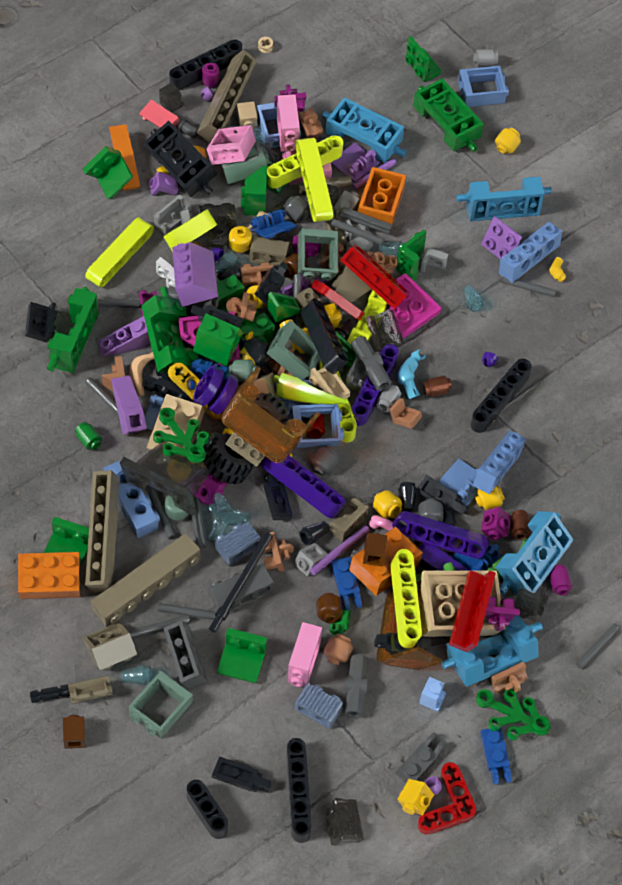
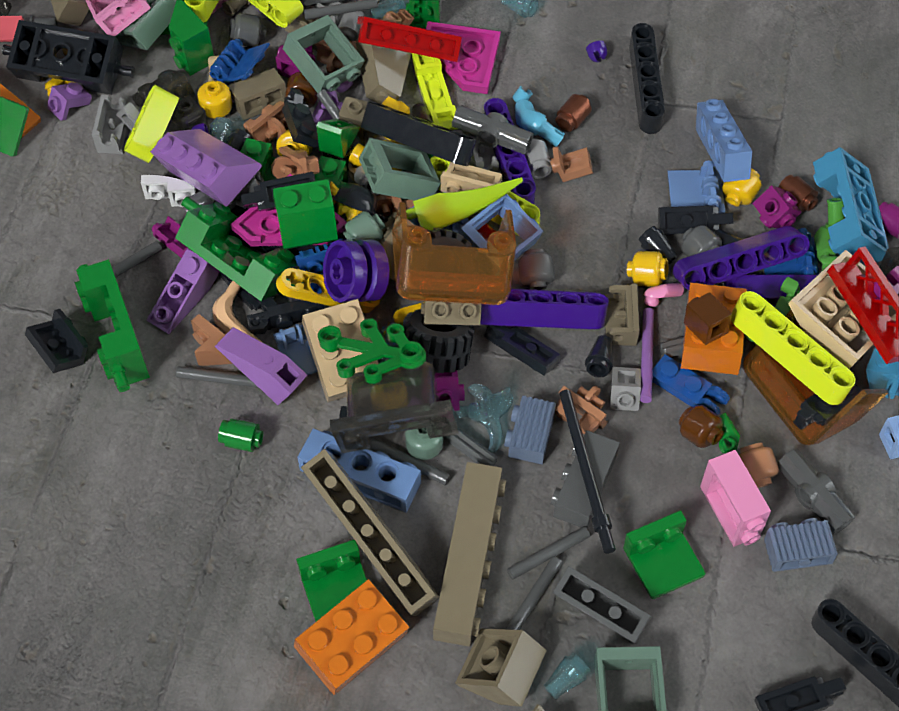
camera: 35 degrees left, 0 degrees up
(119, 252) = (83, 204): neon yellow beam -> none
(327, 292) = (376, 85): beam -> none
(385, 330) = (467, 88): clear smoke bracket -> none

